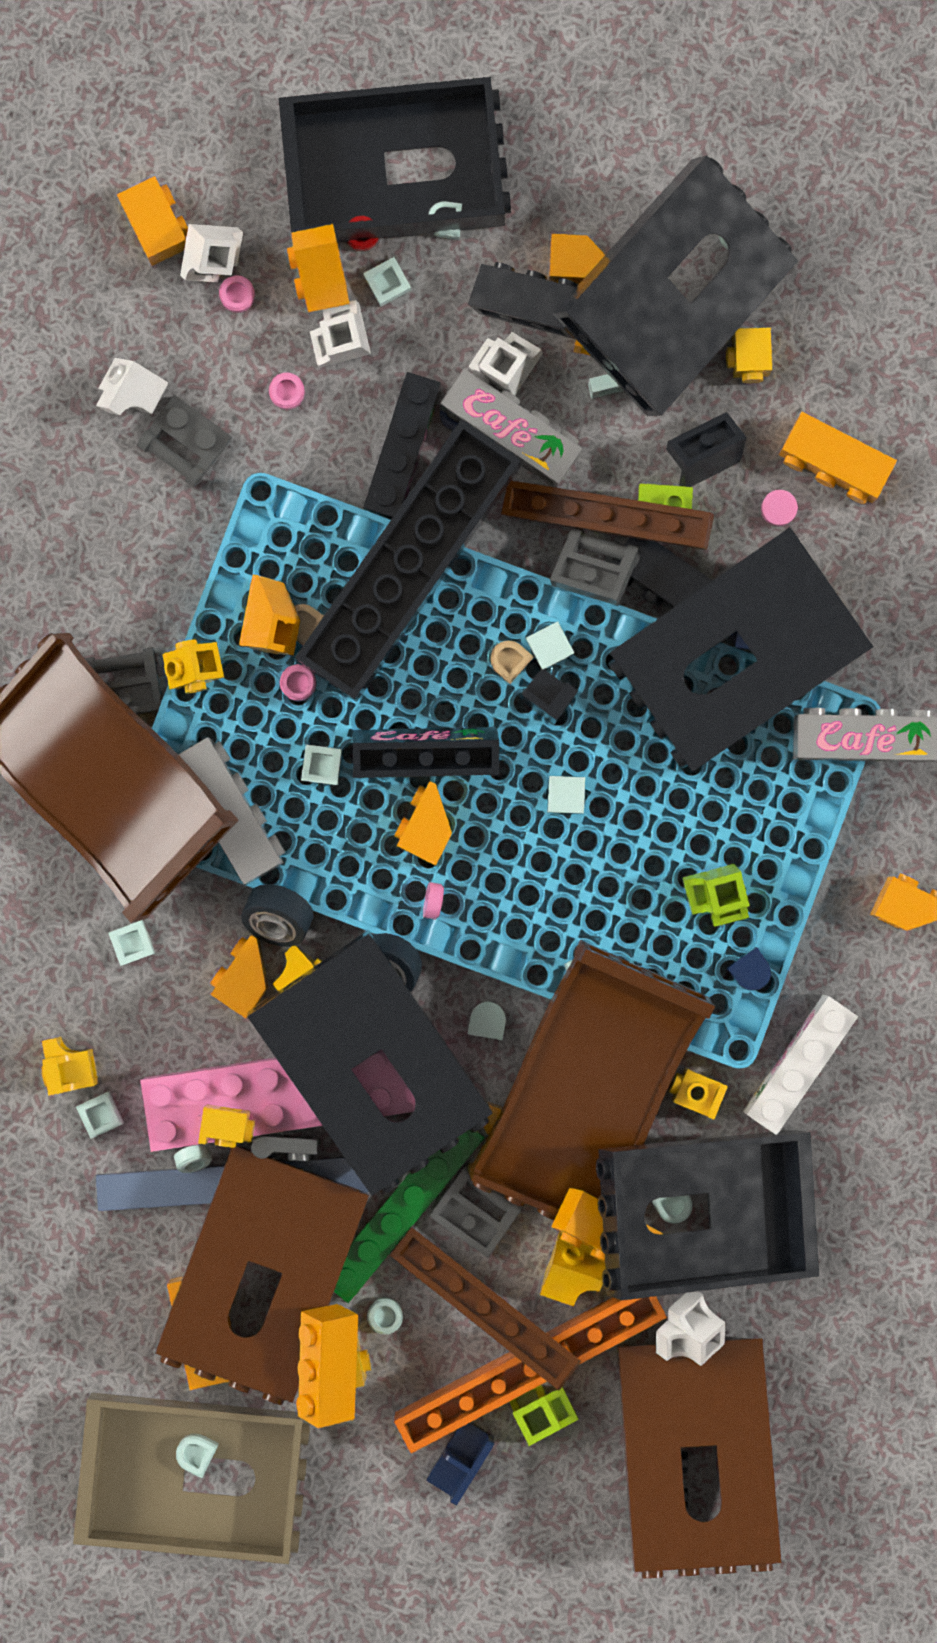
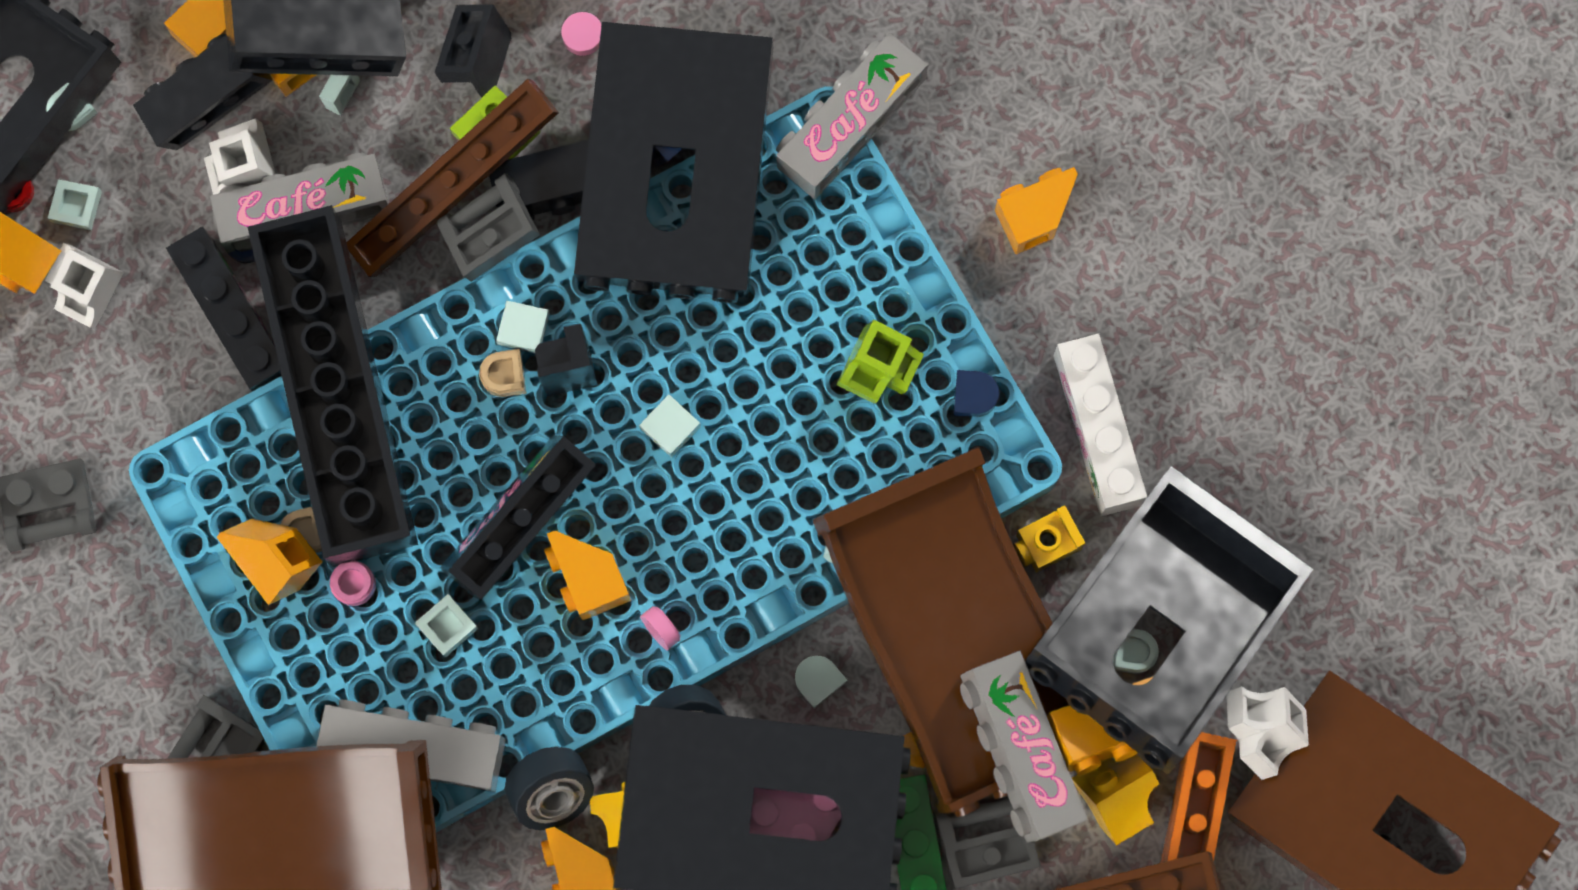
camera: 45 degrees left, 10 degrees down
(192, 666) = (249, 663): yellow brick -> none
(286, 391) = (87, 375): bright pink tile -> none
(548, 1191) = (1022, 747): none -> light grey brick

